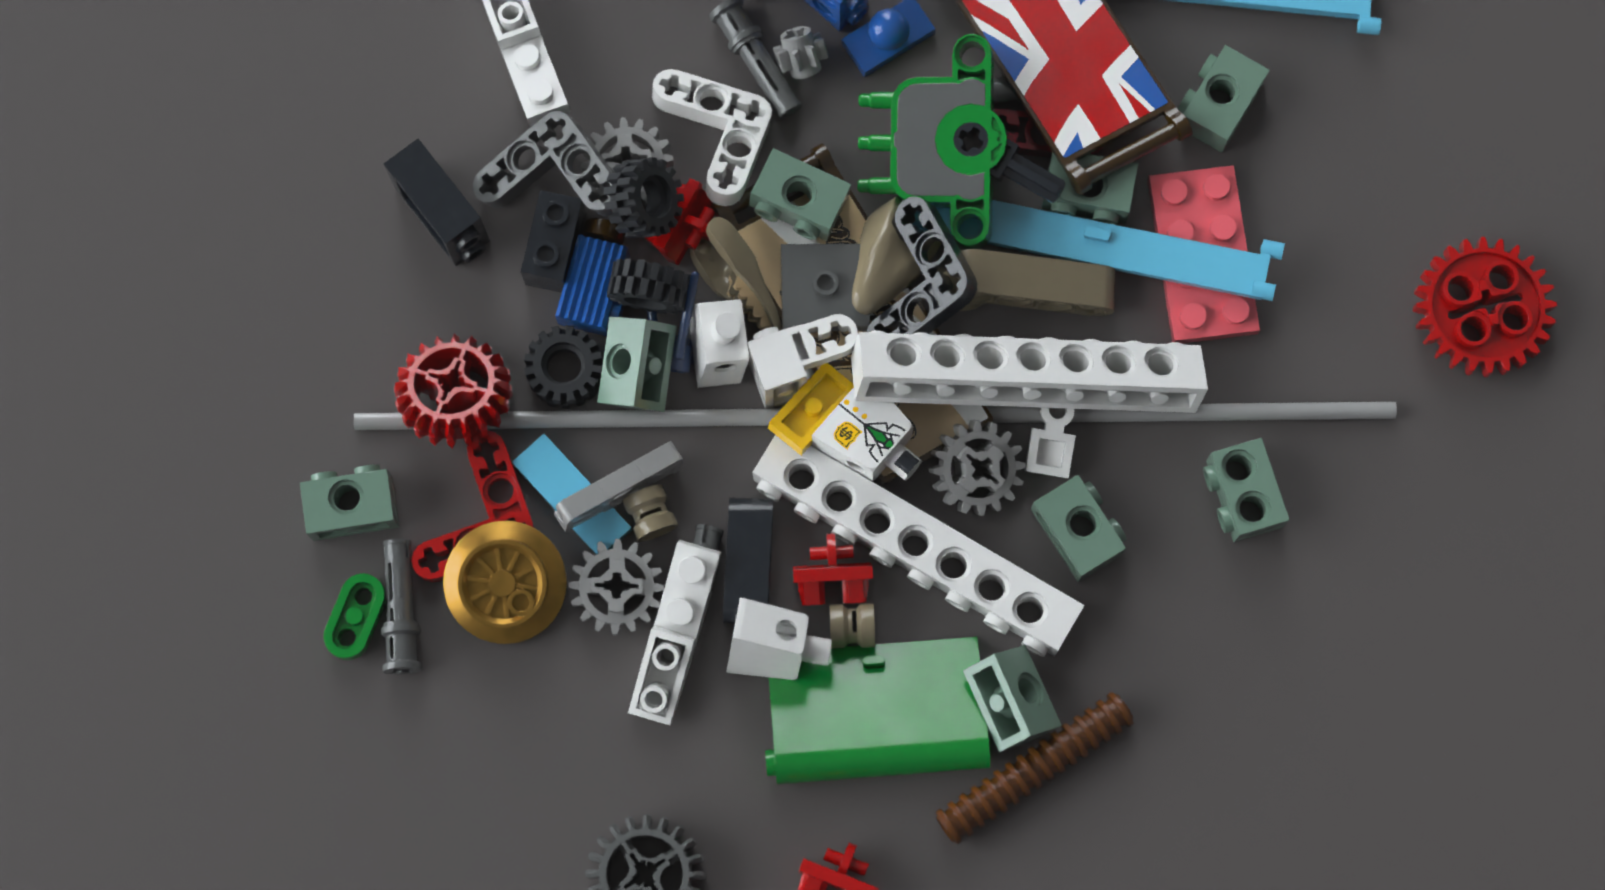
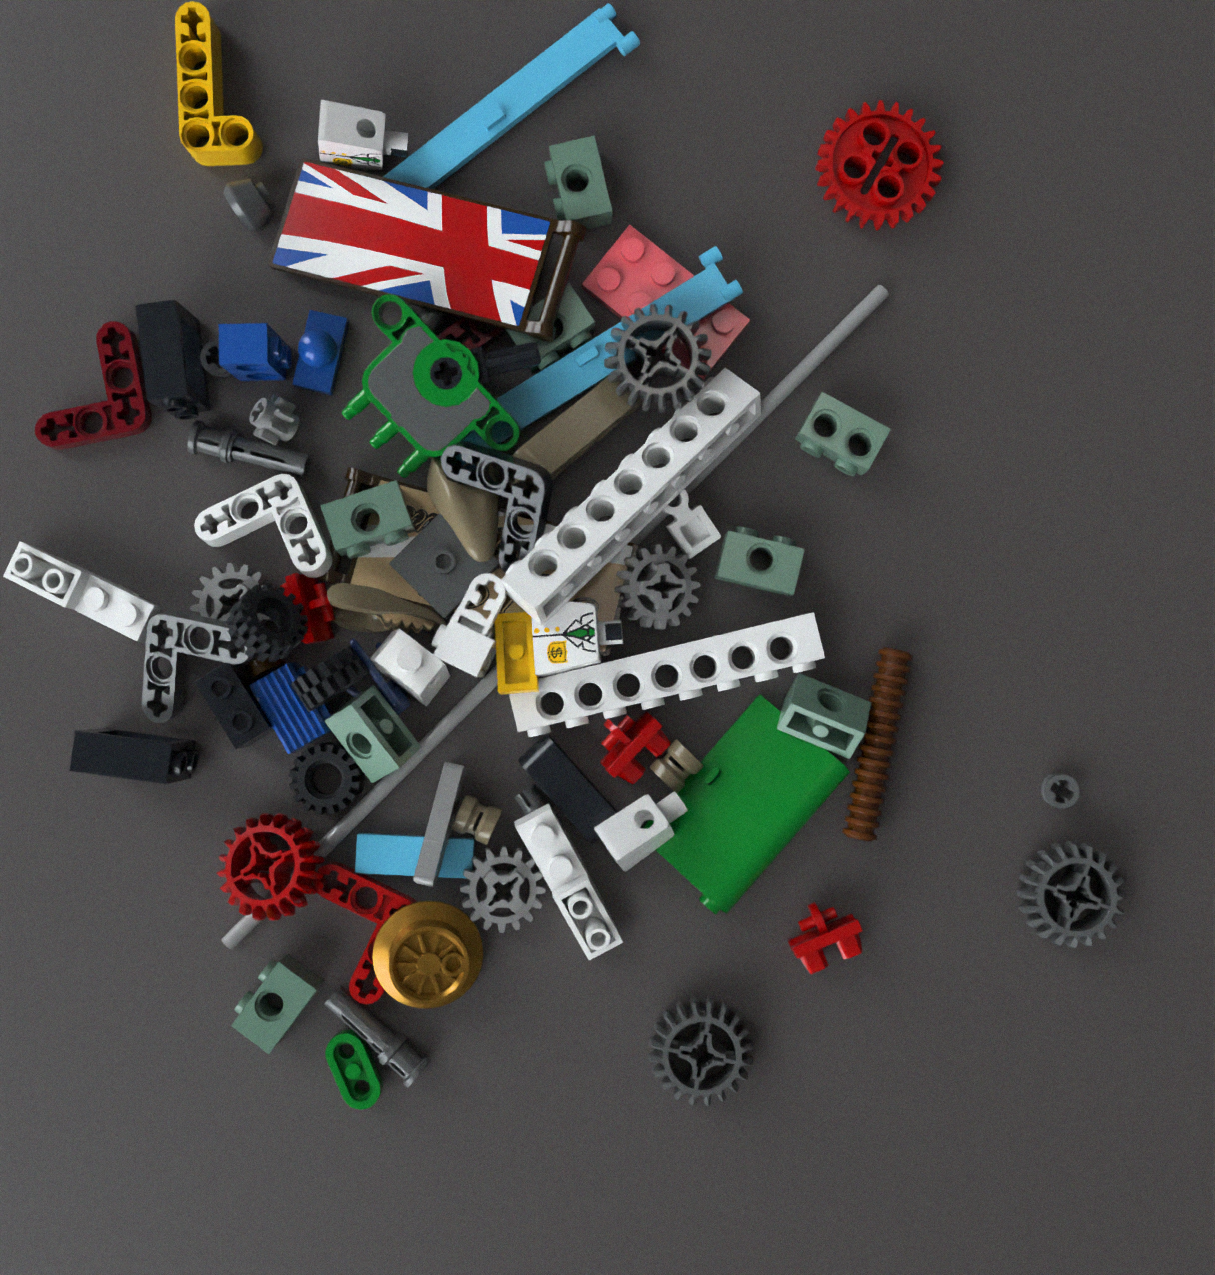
camera: 50 degrees left, 10 degrees up
(1143, 250) = (673, 329): none -> dark grey gear

